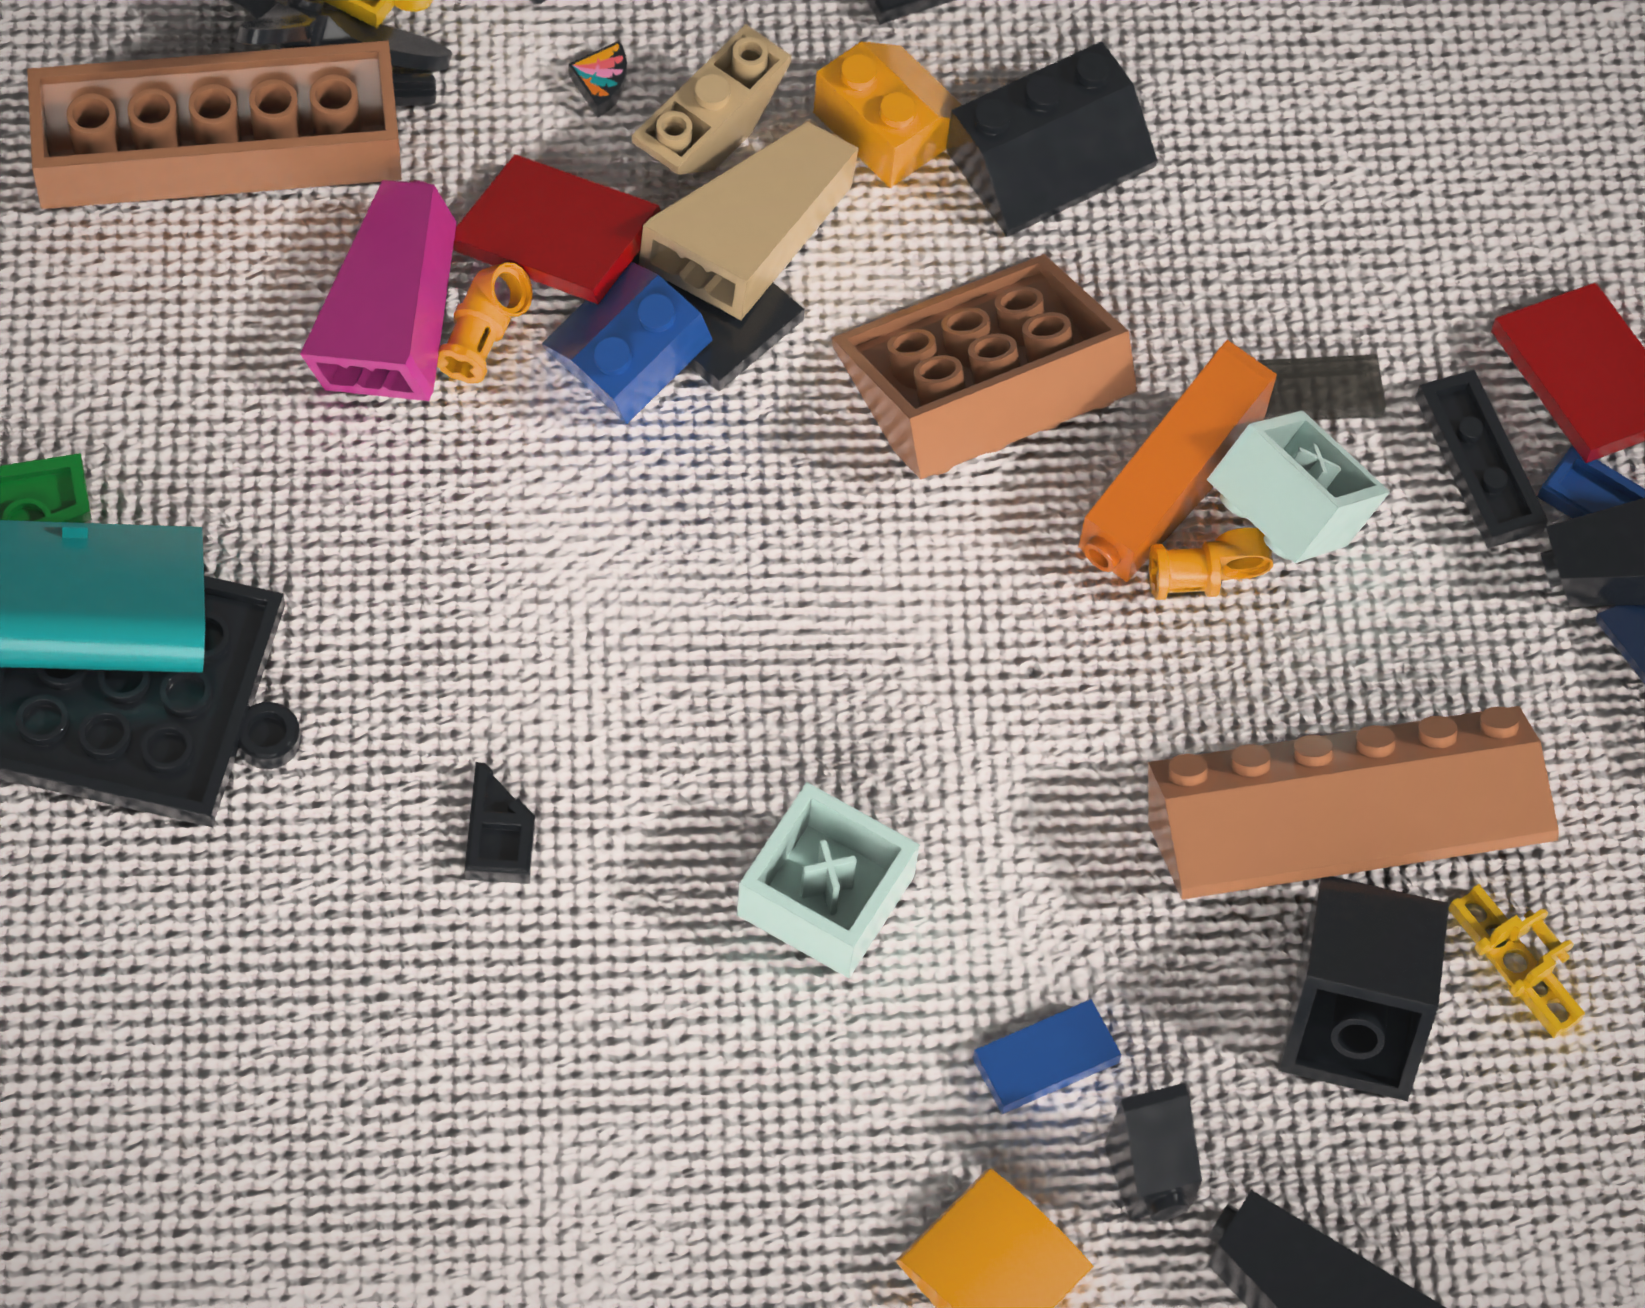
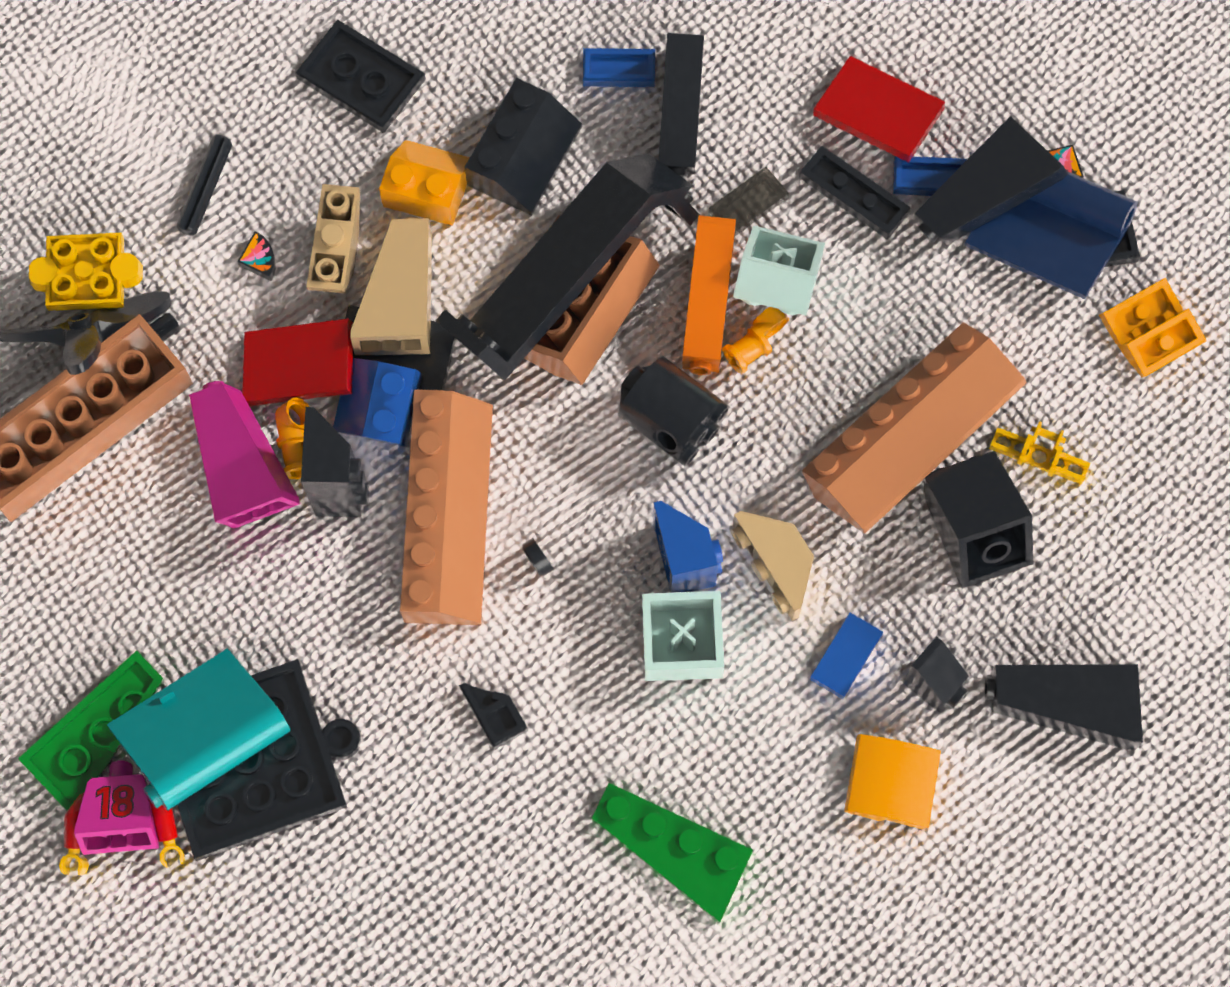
camera: 25 degrees left, 10 degrees up
(492, 373) = (330, 470): none -> black slope
(620, 527) = (446, 509): none -> nougat slope
(629, 1177) = (681, 851): none -> green wing
(700, 662) = (537, 557): none -> black tile
(910, 766) = (686, 550): none -> blue slope
(1011, 301) = (569, 259): none -> black panel
(1020, 577) = (670, 408): none -> black cylinder
(1039, 864) = (778, 557): none -> tan slope
(1258, 120) = (618, 67): none -> blue tile
(1311, 202) = (681, 102): none -> black slope

